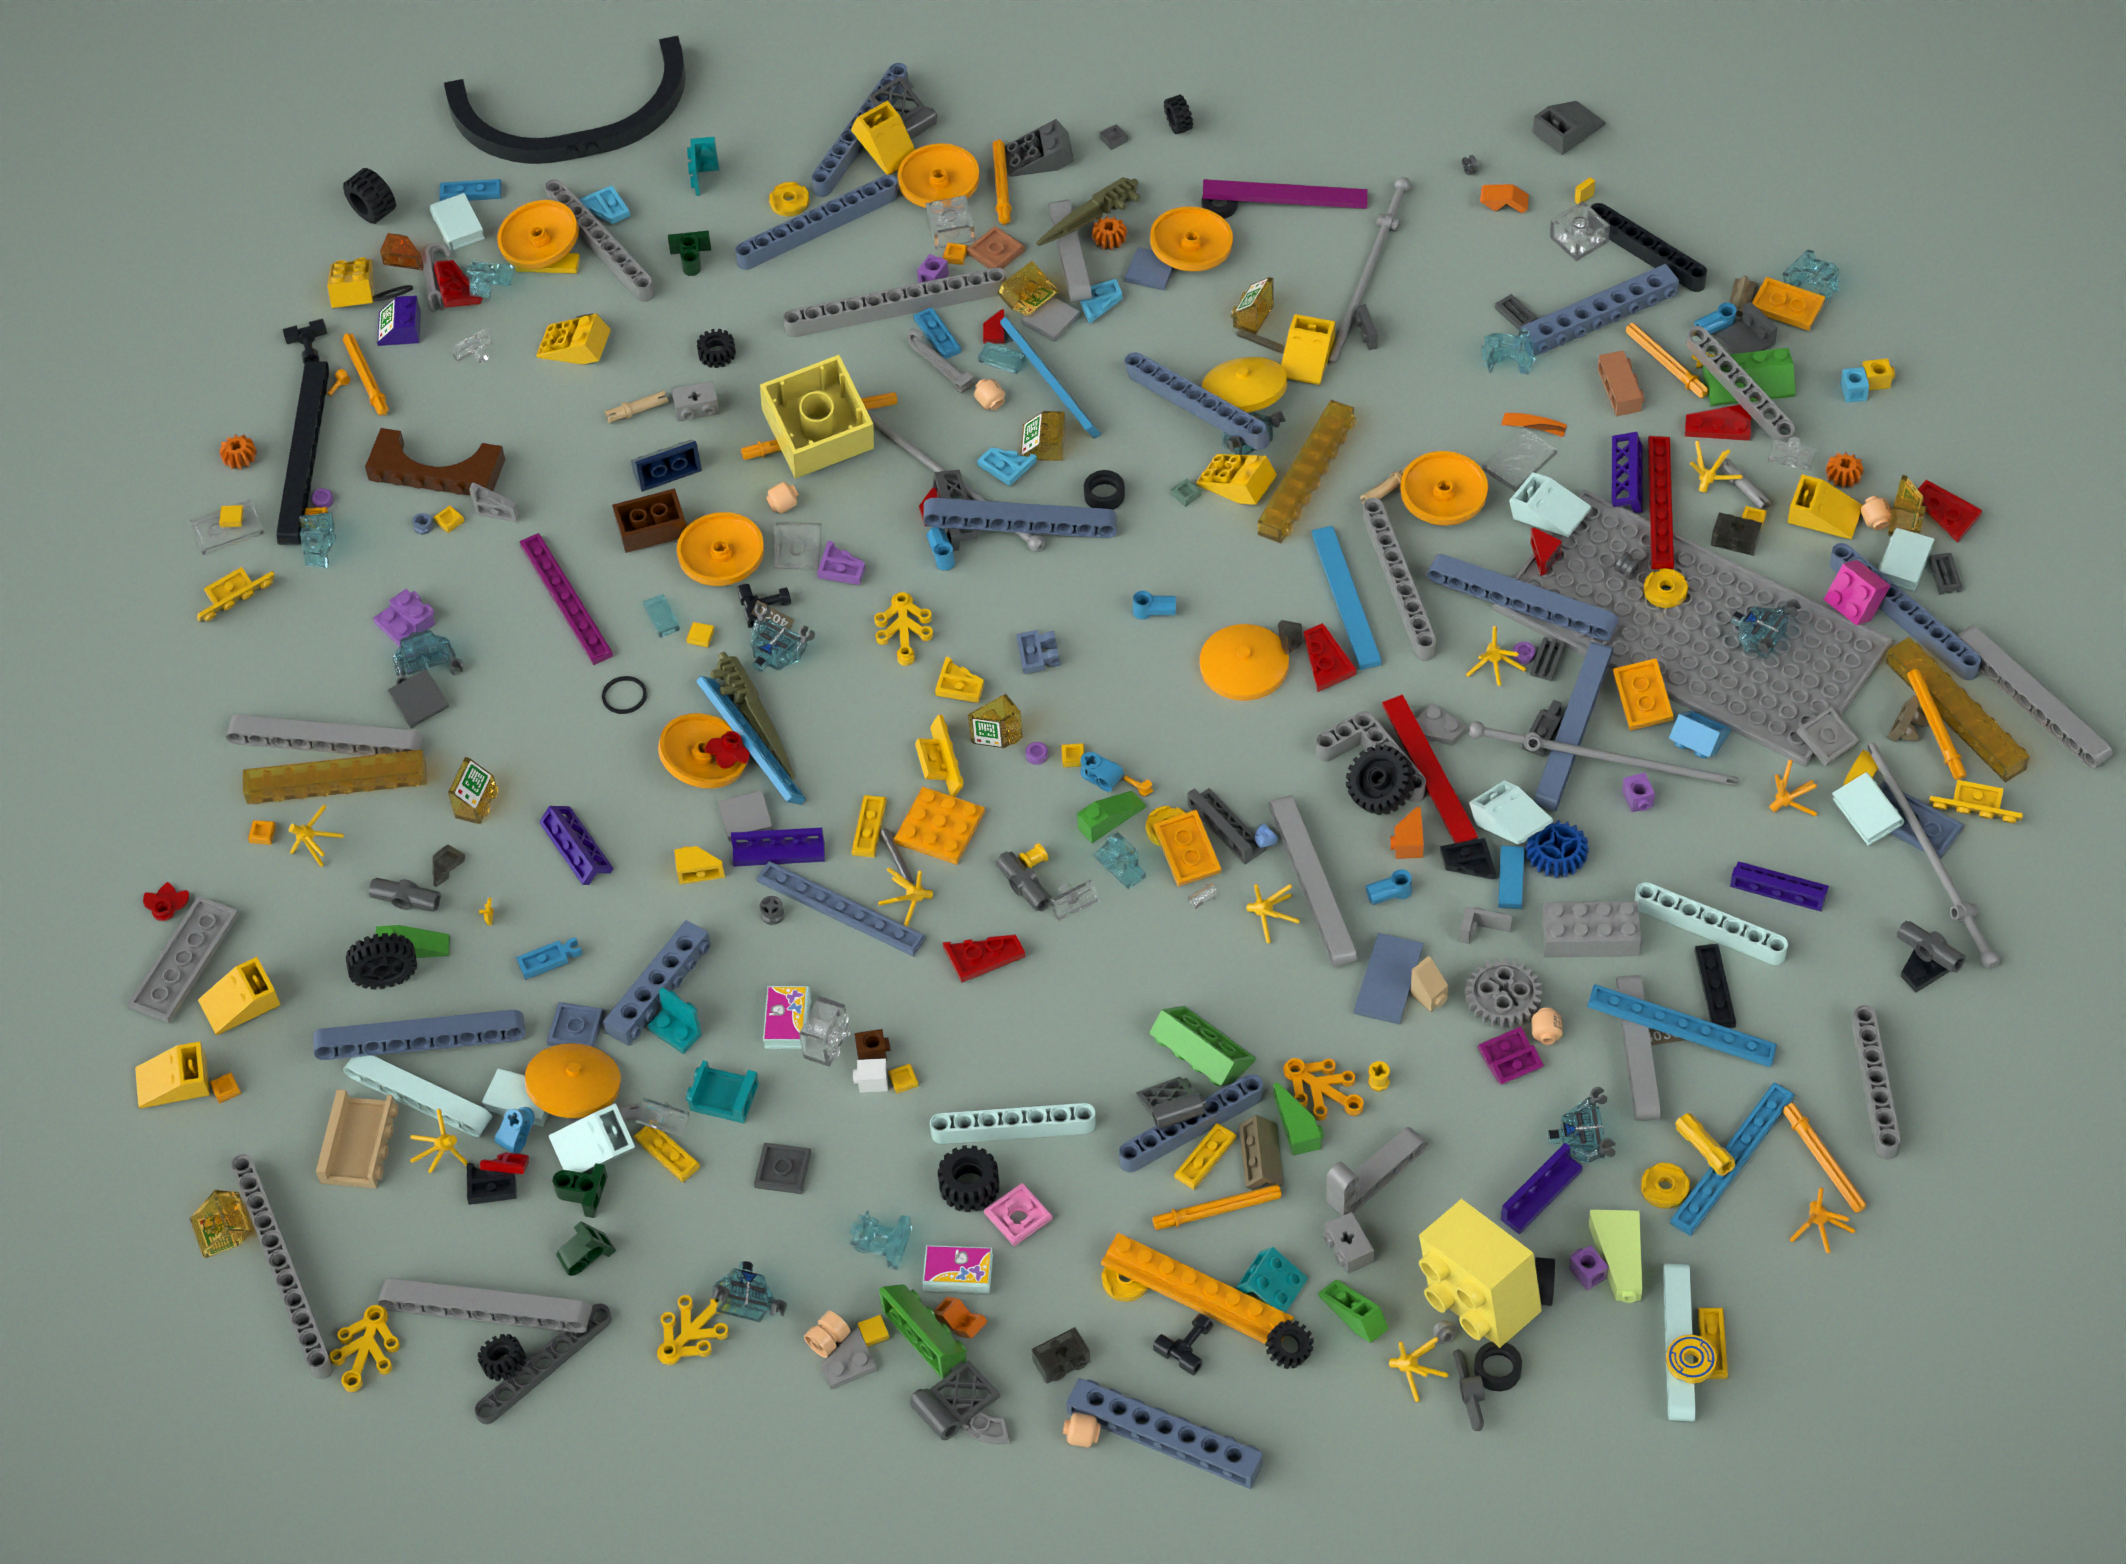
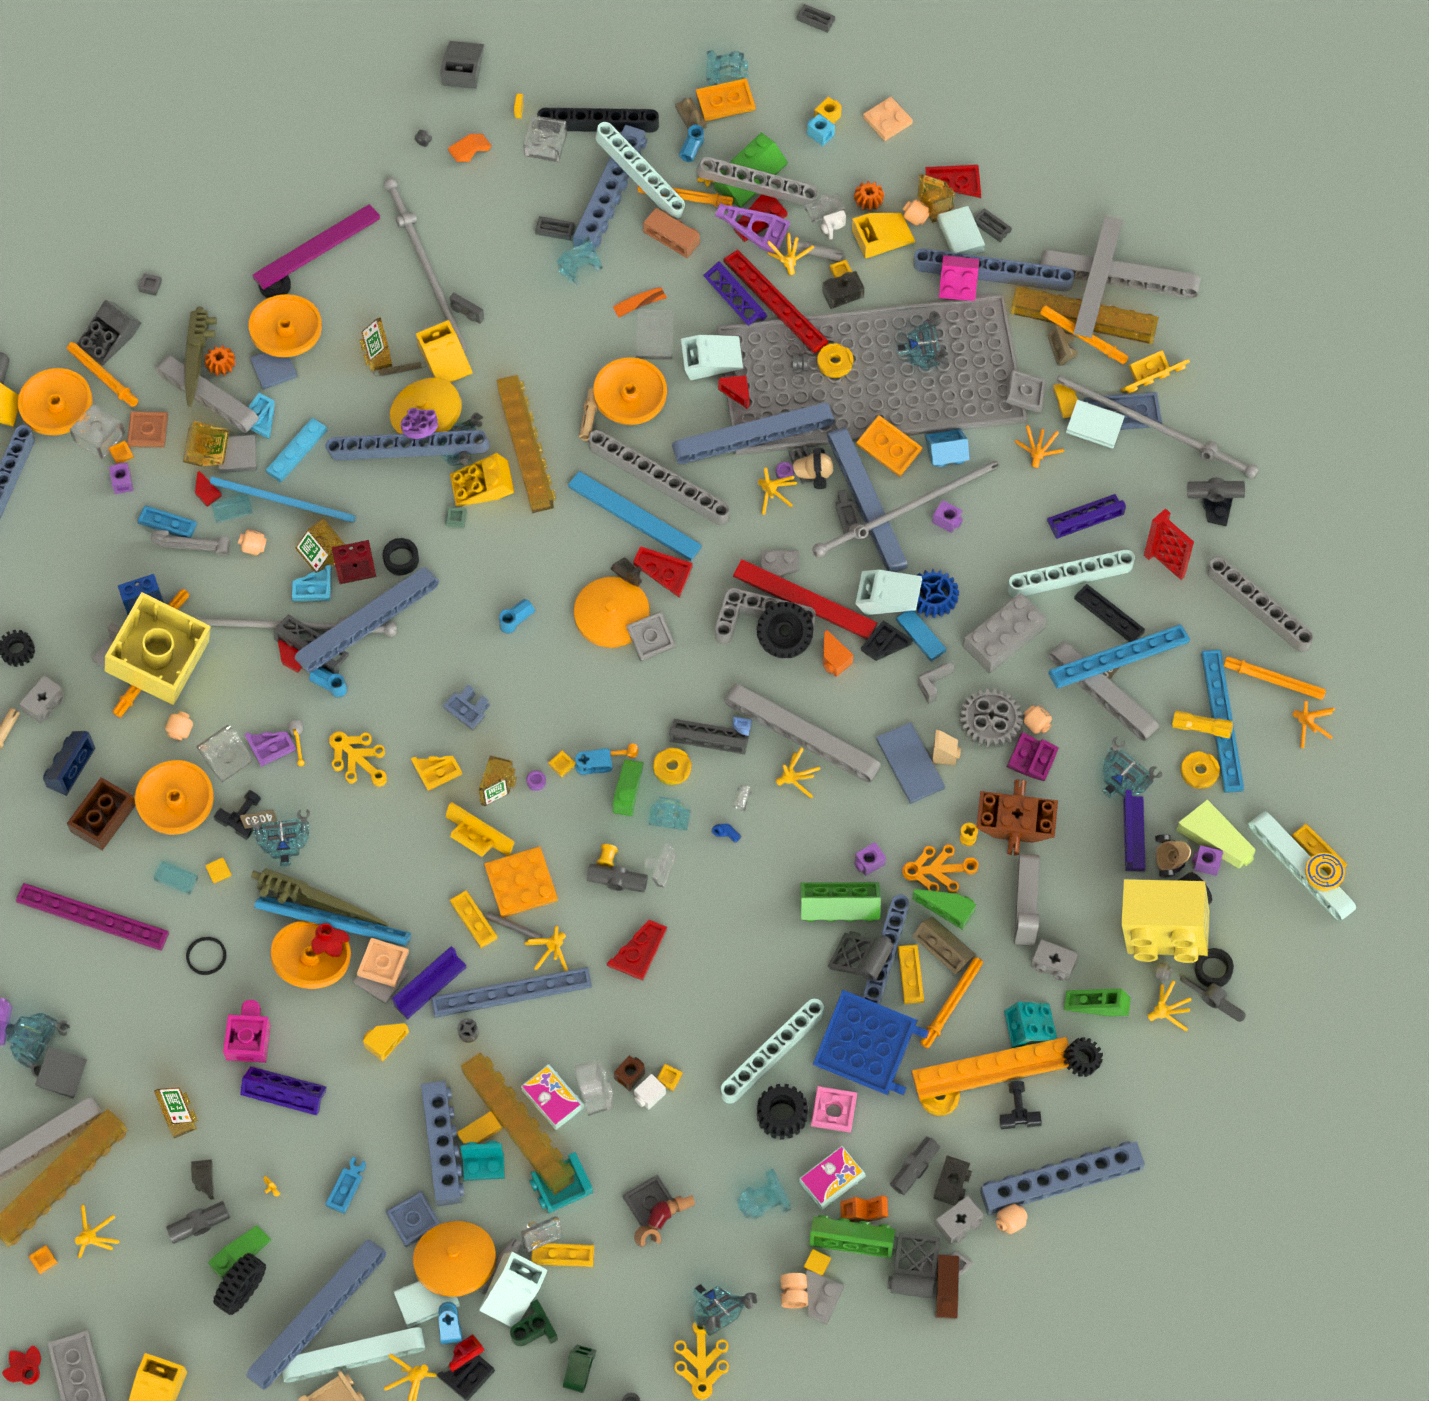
camera: 45 degrees left, 10 degrees up
(587, 767) = (247, 1035): none -> dark pink brick
(702, 997) = (480, 1129): none -> yellow tile
(733, 1014) = (517, 1123): none -> clear yellow brick
(755, 801) = (383, 962): none -> light nougat plate
(778, 1178) = (659, 1215): none -> medium nougat piece
(860, 362) = (130, 592): none -> blue window
(875, 567) = (296, 728): none -> hinge
(893, 302) = (112, 528): light grey beam -> none
(961, 1440) = (947, 1287): none -> reddish brown slope
(1023, 1386) = (962, 1210): none -> light grey brick
(1041, 1317) = (915, 1165): none -> dark grey piece
(1048, 474) = (347, 559): none -> dark red window
(1100, 1178) = (866, 1043): none -> blue plate
(1103, 347) = (296, 450): none -> medium azure plate
(1160, 912) = (725, 830): none -> blue arm
(1178, 114) = (185, 236): black tyre -> none
(1187, 848) = (703, 772): light orange plate -> none
(1219, 385) = (419, 423): none -> medium lavender tile
(1256, 704) = (650, 636): none -> light grey tile
(1266, 1038) = (873, 852): none -> medium lavender brick
(1389, 888) = (855, 701): dark azure piece -> none
(1436, 1091) = (1035, 816): none -> dark orange slope
(1553, 665) = (815, 466): none -> tan cap
(1555, 1236) = (1171, 855): none -> tan cap
(1640, 316) = (637, 163): none -> light aqua beam
(1715, 444) = (774, 234): none -> medium lavender plate
(1751, 333) = (722, 138): dark grey bracket -> none
(1785, 470) = (833, 221): none -> white bracket
(1822, 951) = (1159, 533): none -> red fence
(1933, 417) = (887, 118): none -> light nougat plate
(1946, 289) = (814, 20): none -> dark grey tile
(2000, 680) = (1098, 277): none -> light grey tile

